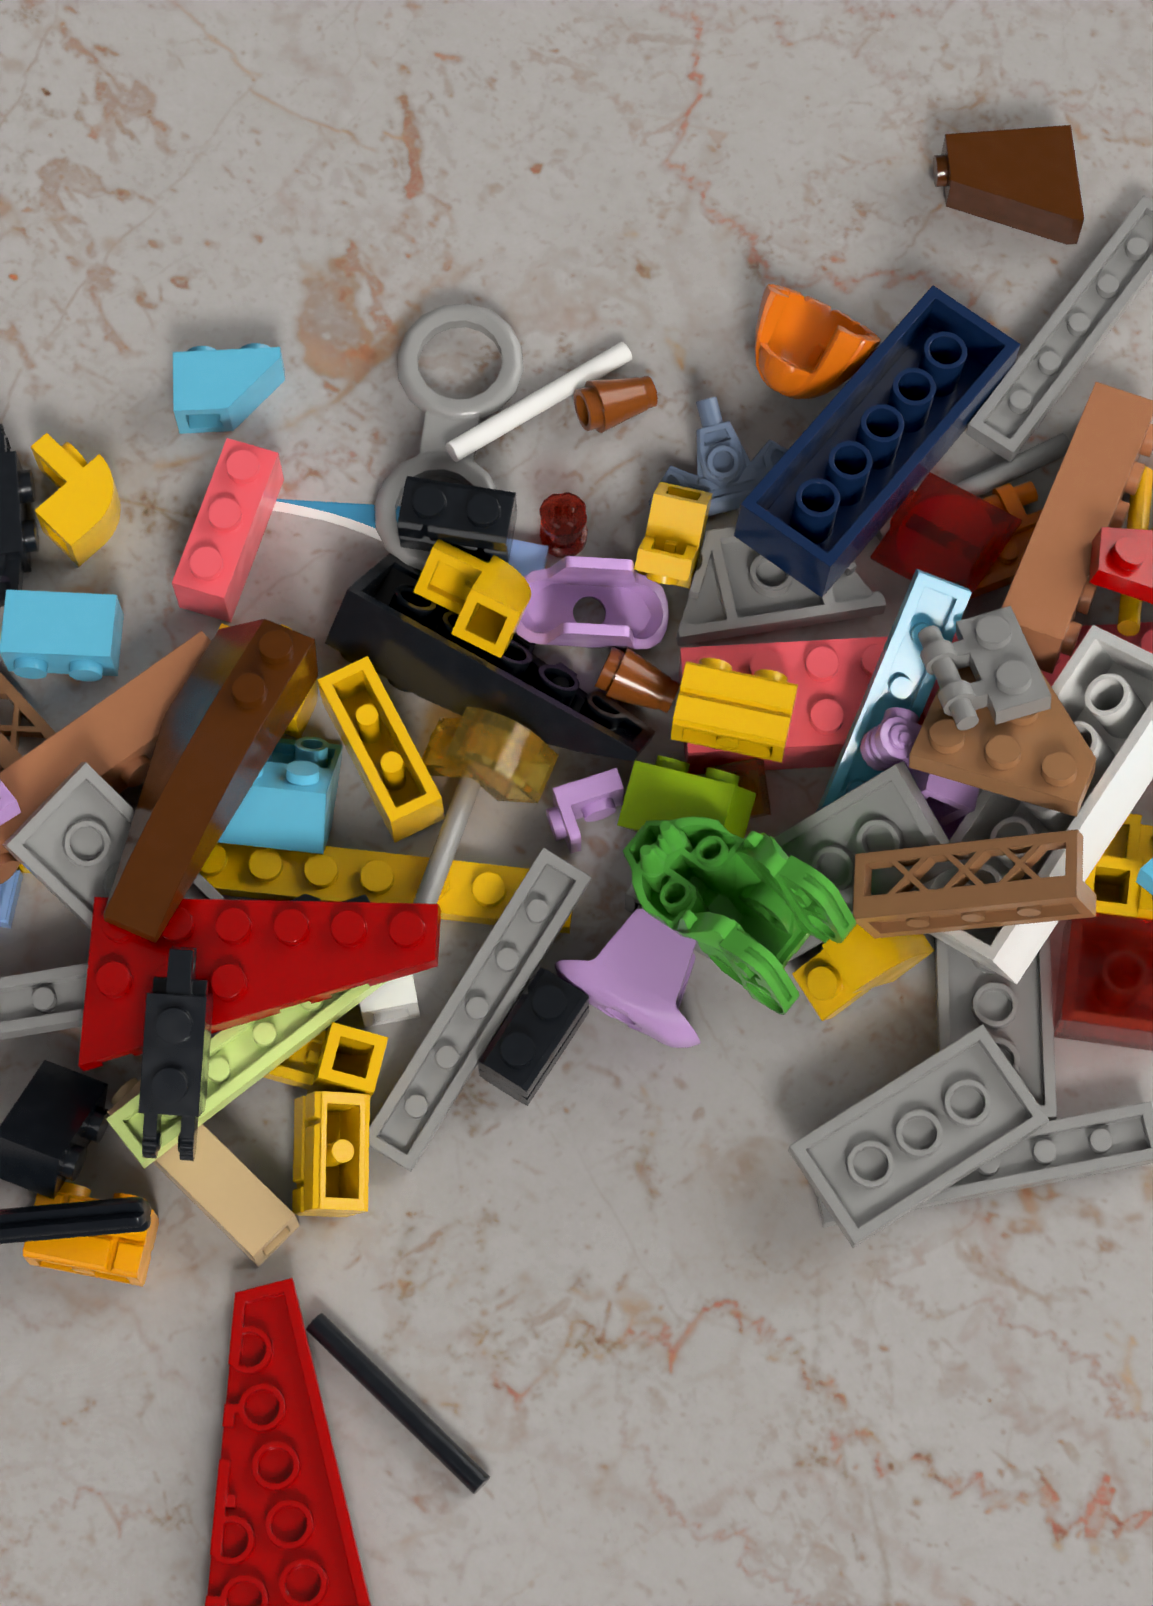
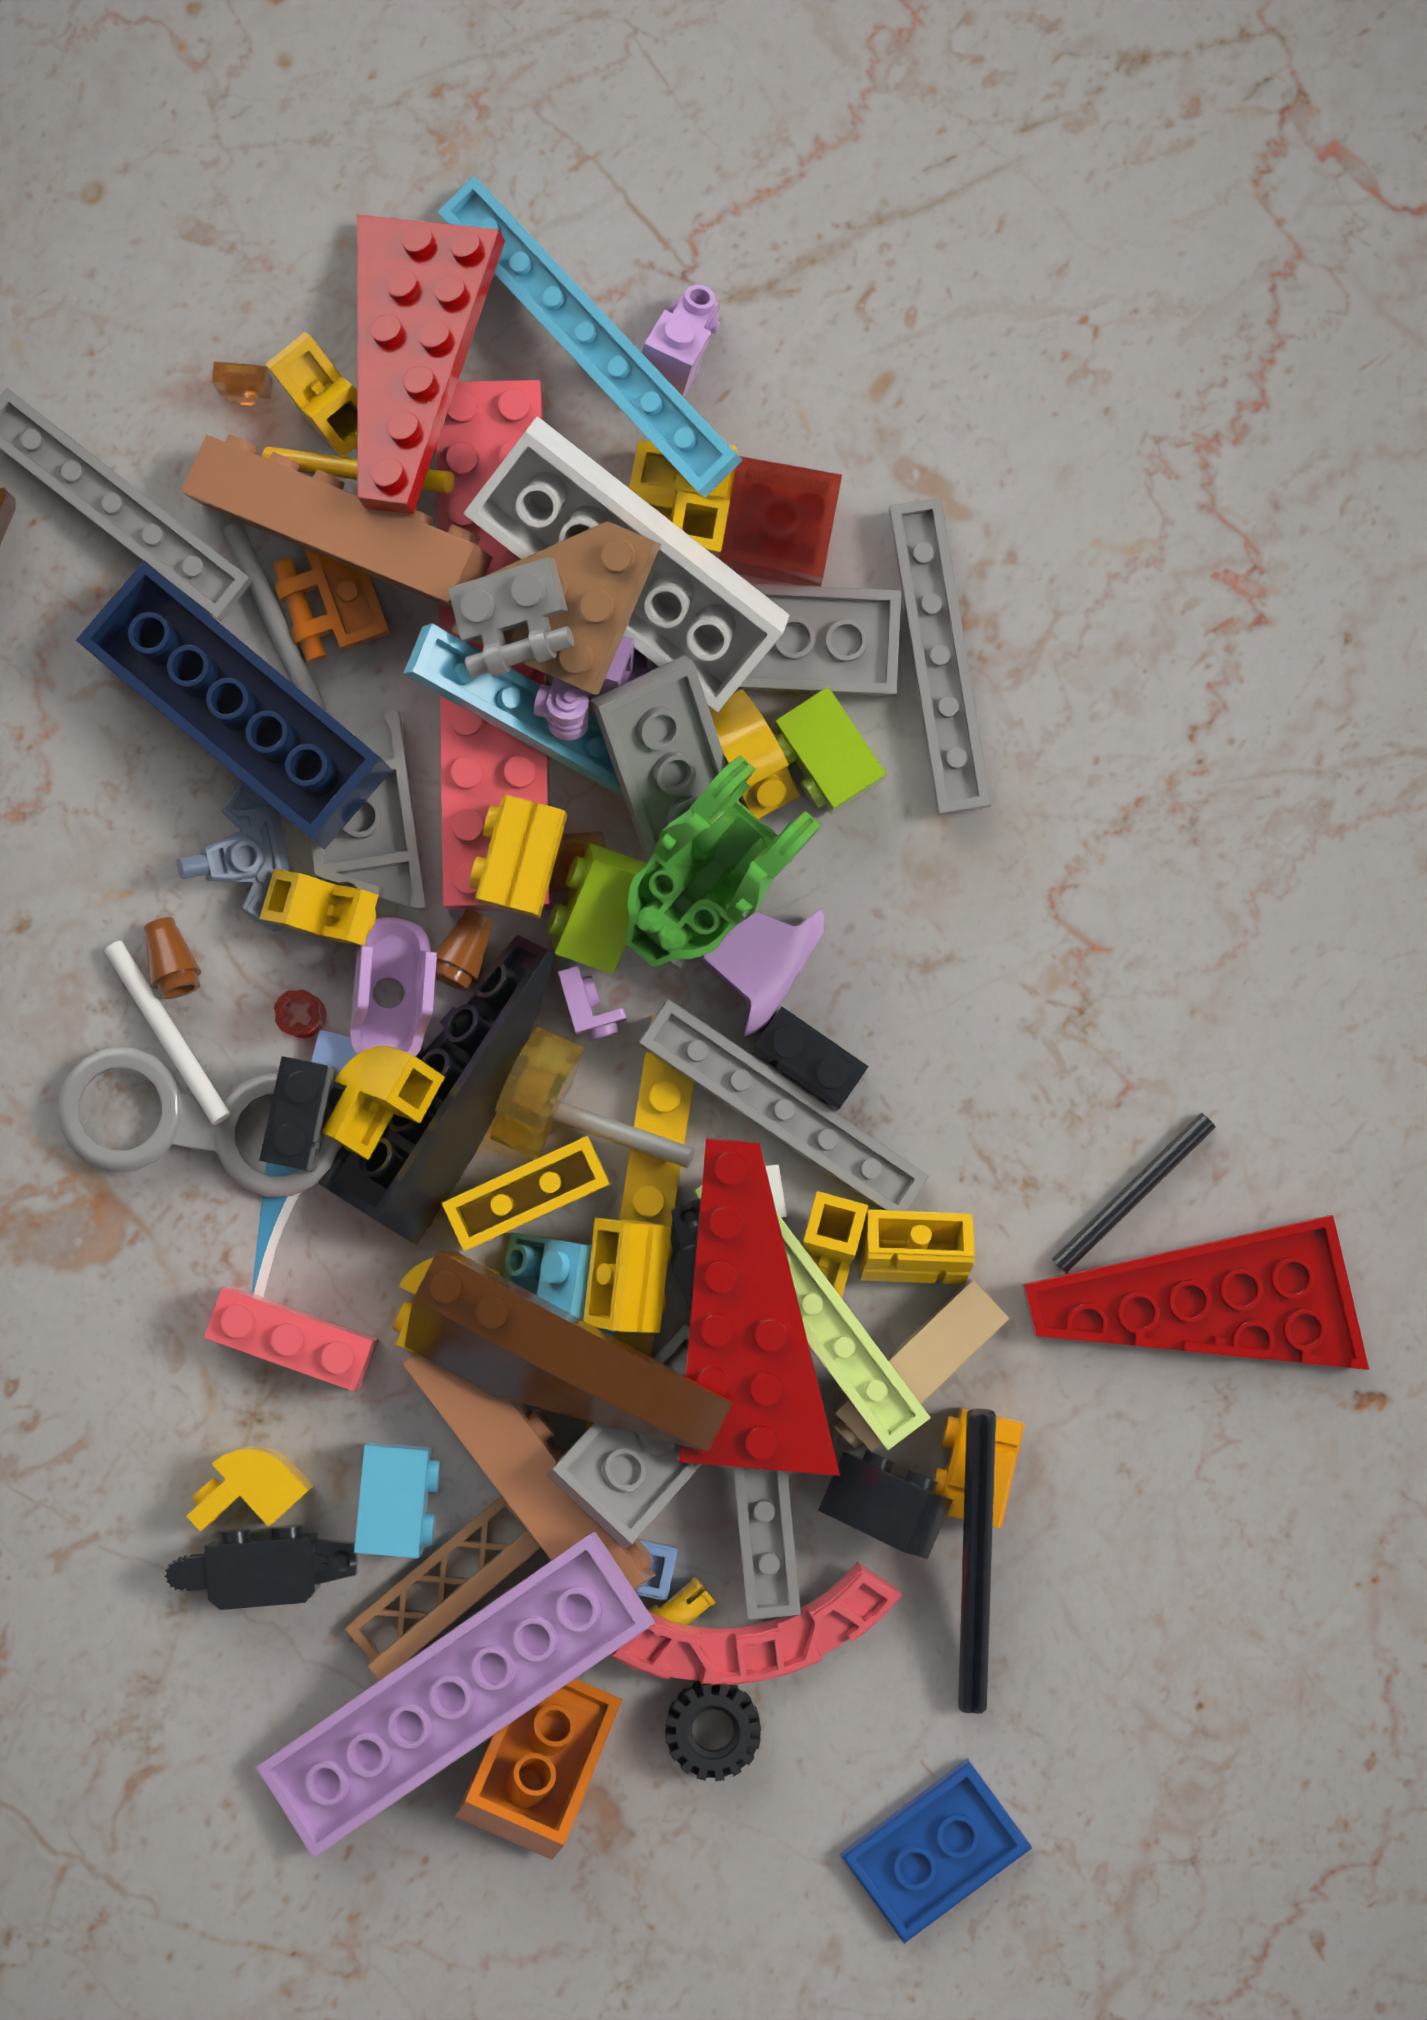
camera: 90 degrees left, 15 degrees up
(176, 1053) = (842, 1383): black hinge -> none
(223, 387) = (138, 1344): medium azure slope -> none
(294, 846) = (627, 1275): none -> yellow brick
(806, 346) = (122, 765): orange hair -> none
(871, 1042) = (828, 752): none -> lime brick
(918, 1135) = (920, 714): light grey plate -> none
(945, 534) = (334, 648): clear red piece -> none
(977, 905) = (735, 649): medium nougat fence -> none

